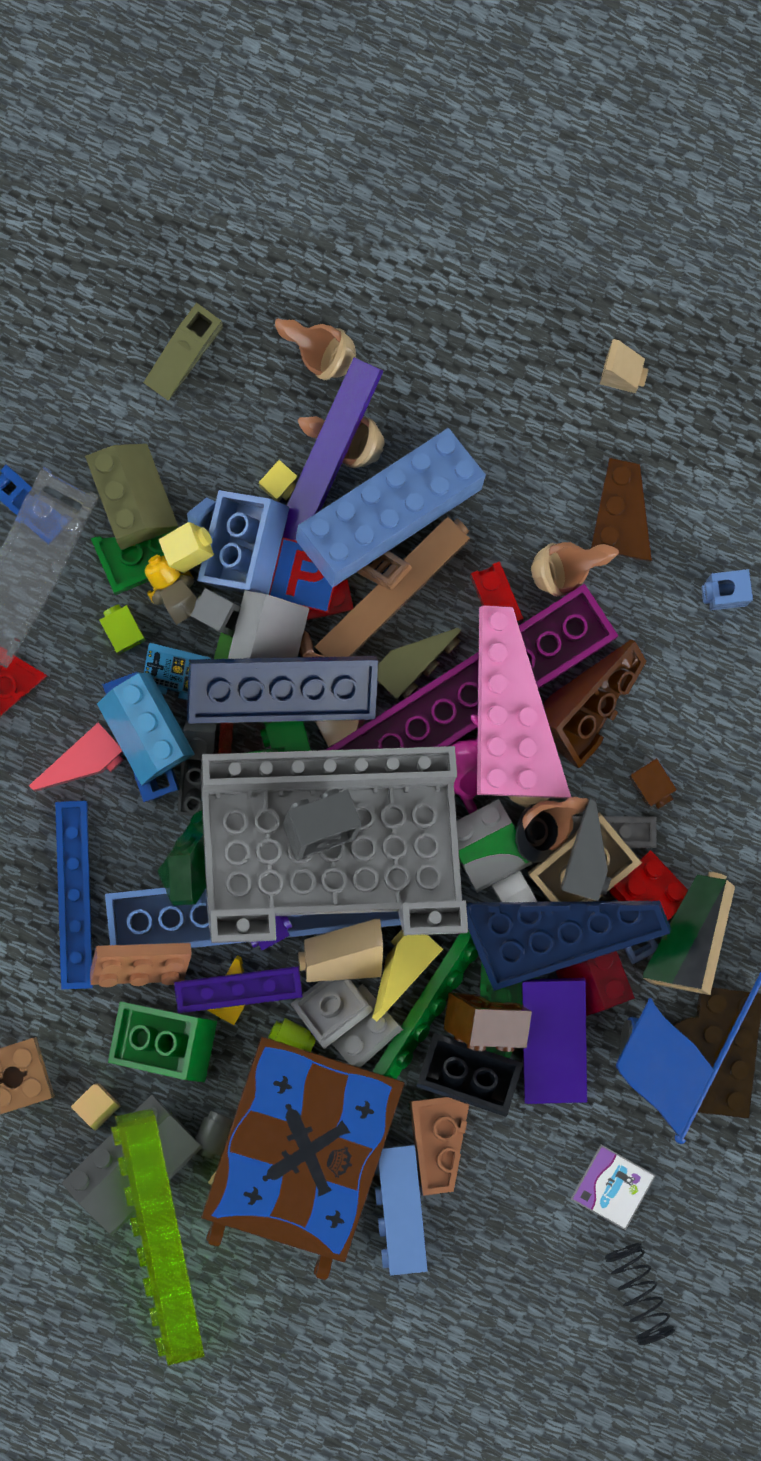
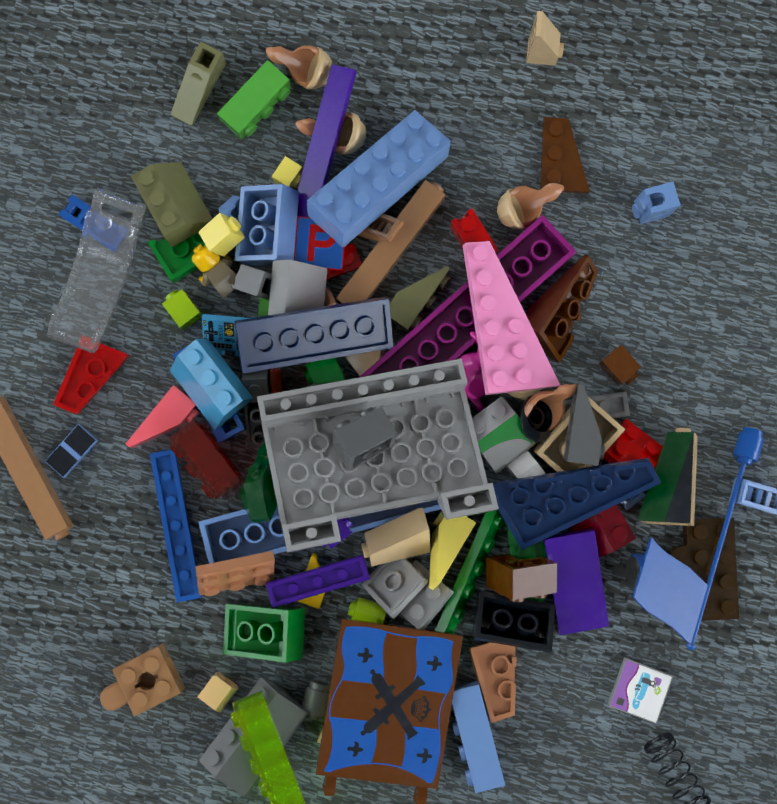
camera: 10 degrees left, 0 degrees up
(125, 821) = (206, 460): none -> clear red brick
(252, 382) = (255, 100): none -> bright green brick

